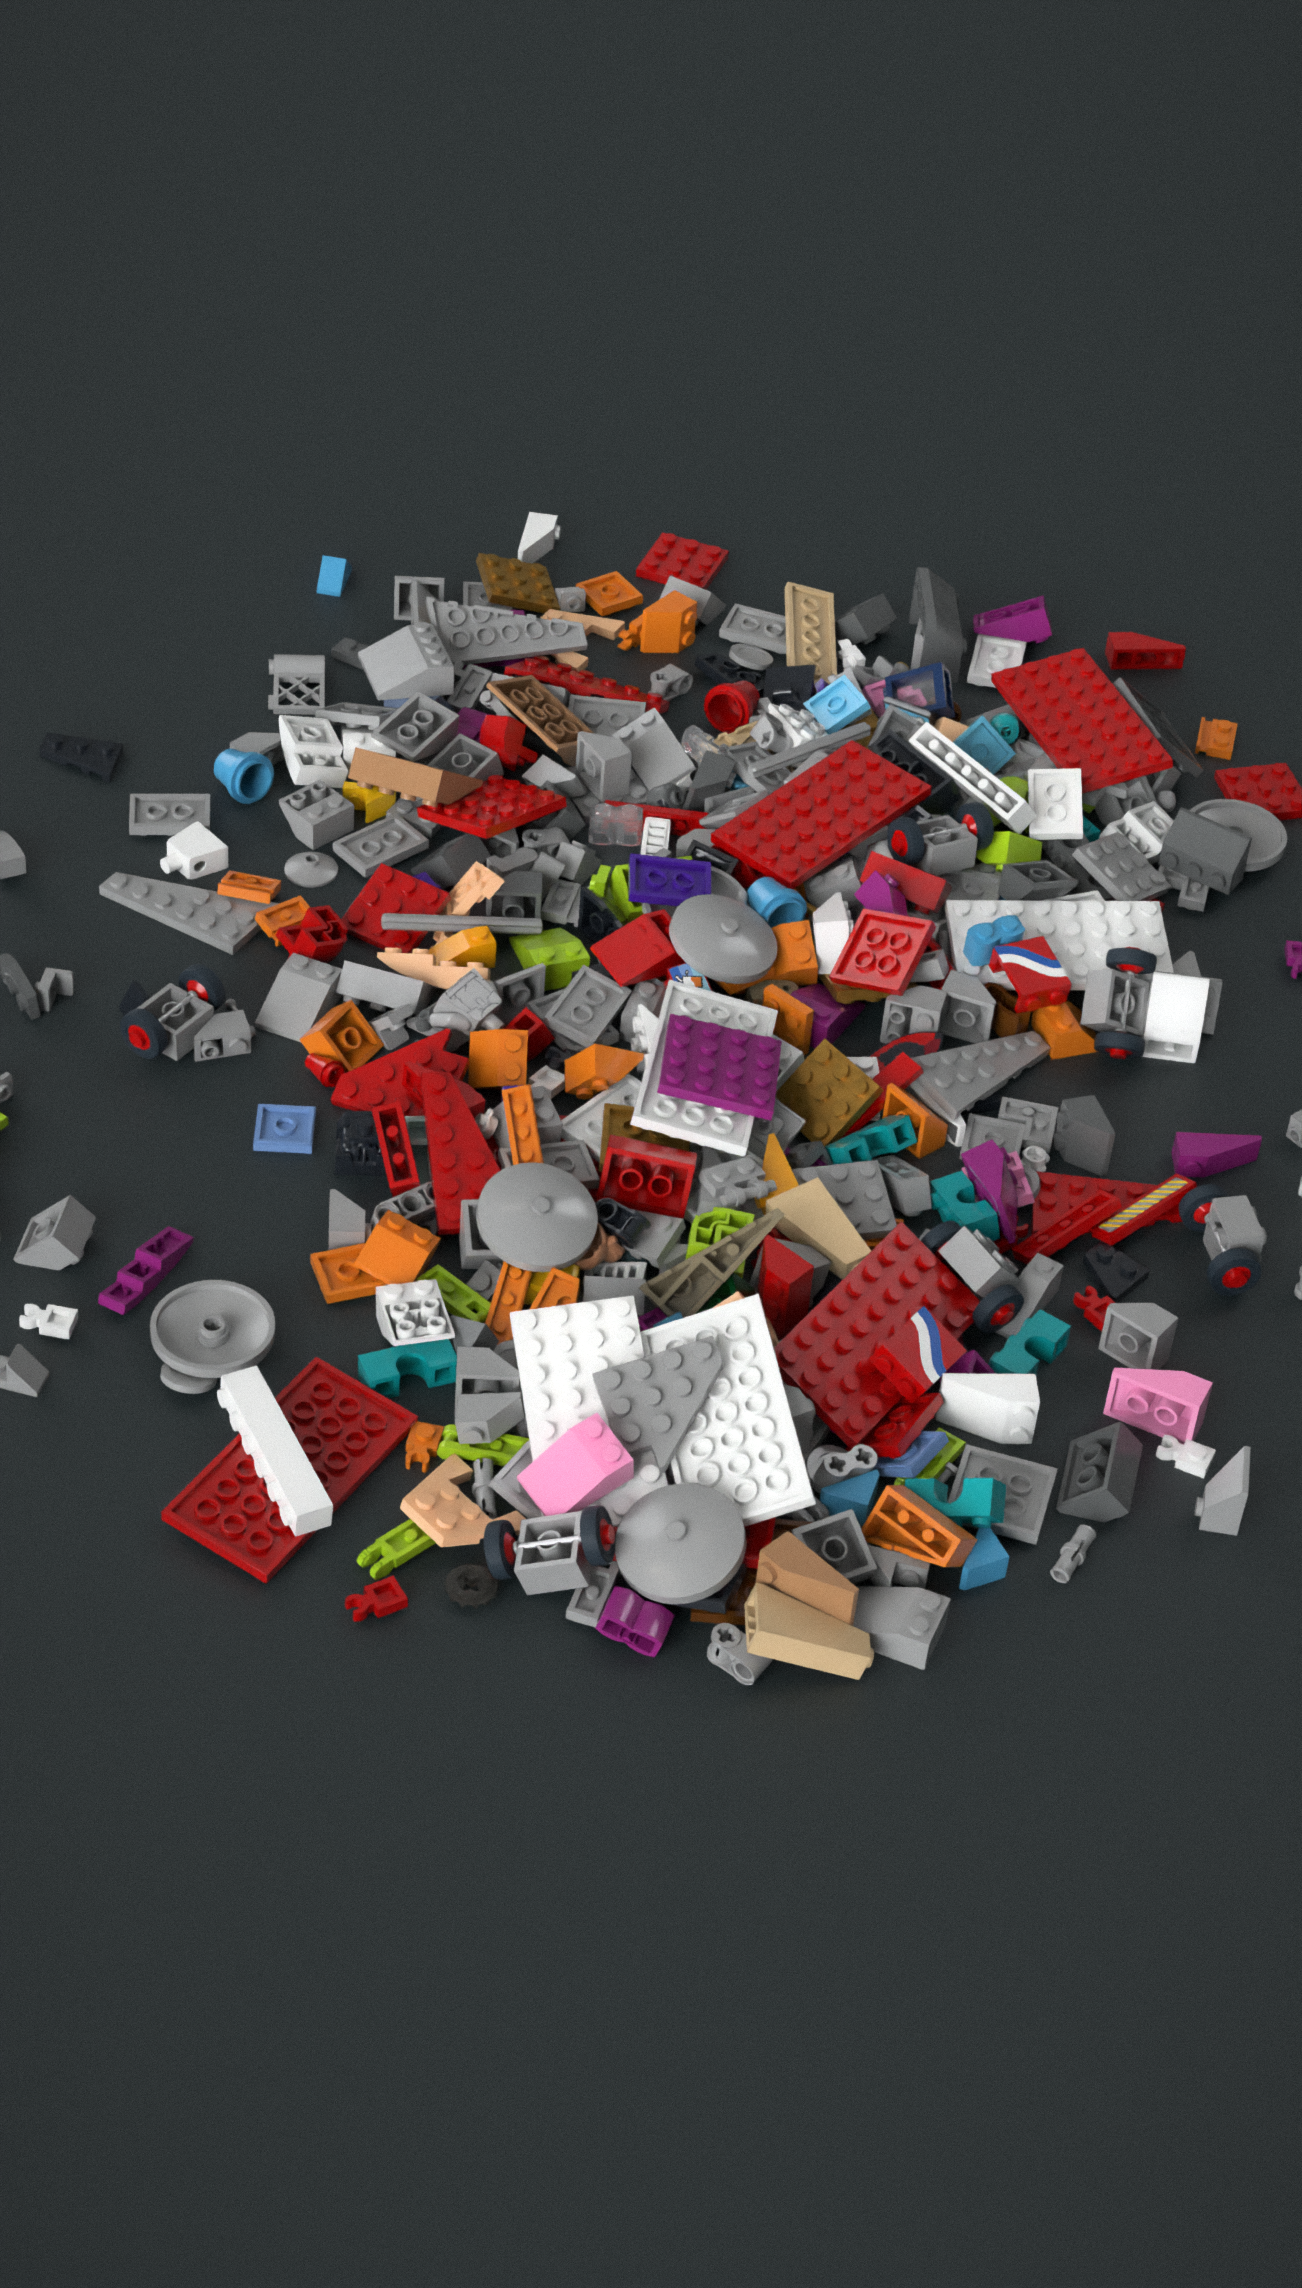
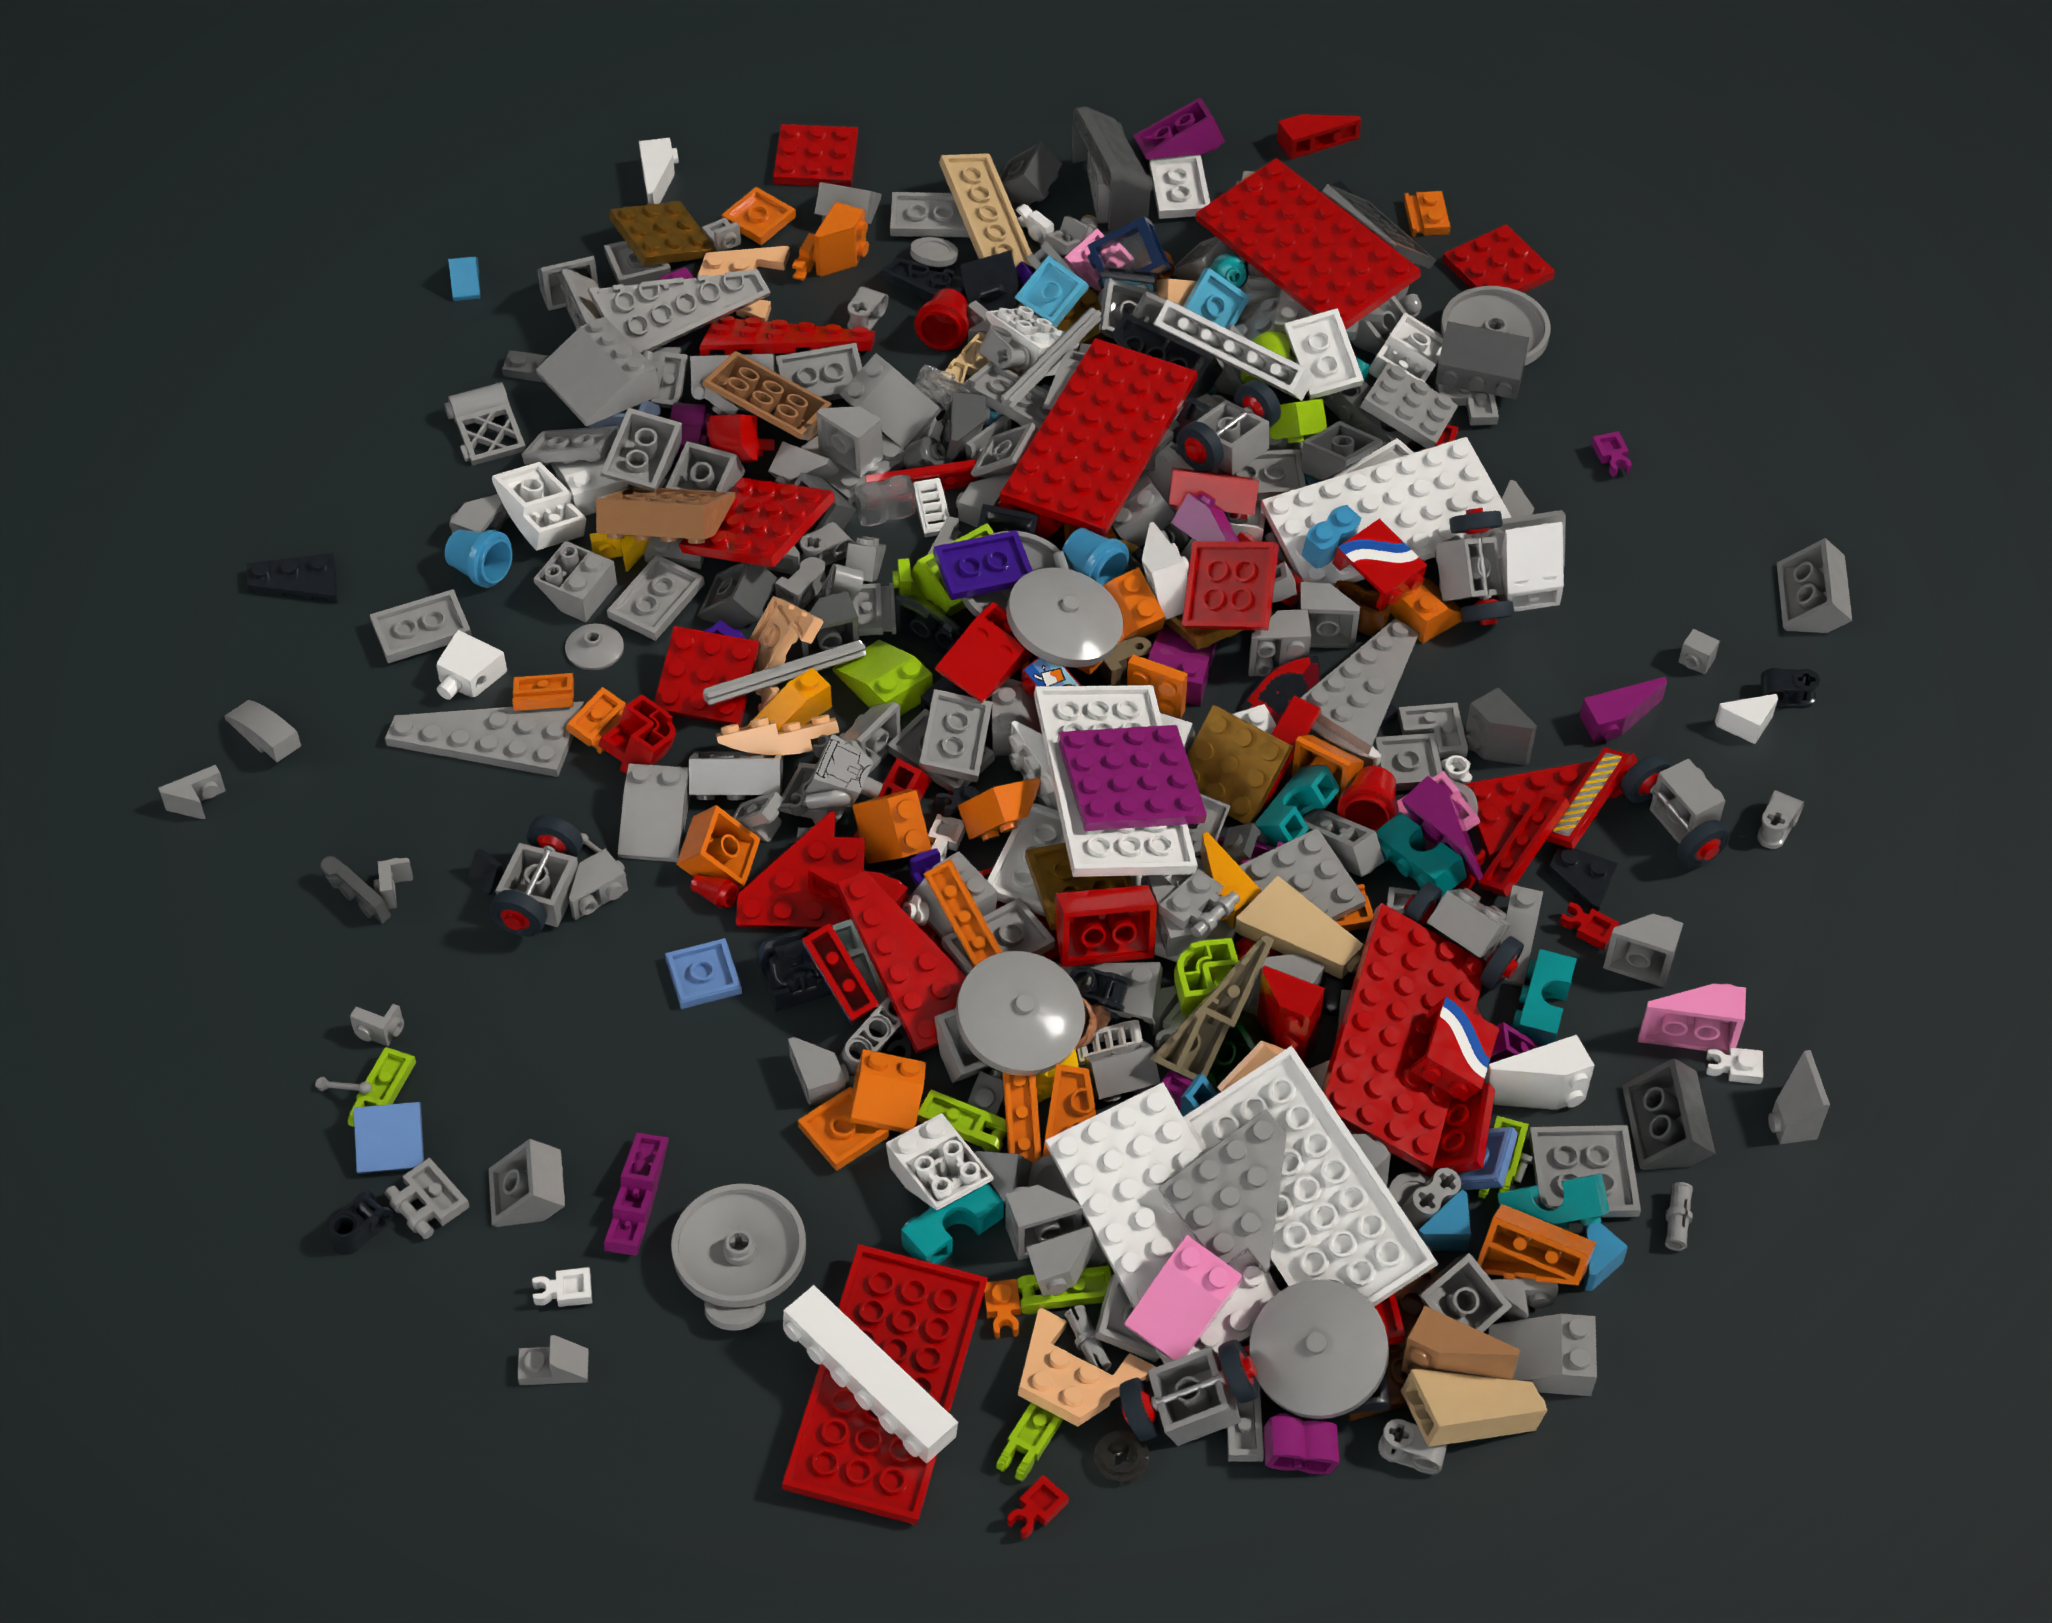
camera: 15 degrees left, 10 degrees up
(938, 1153) = (1370, 798): none -> red piece

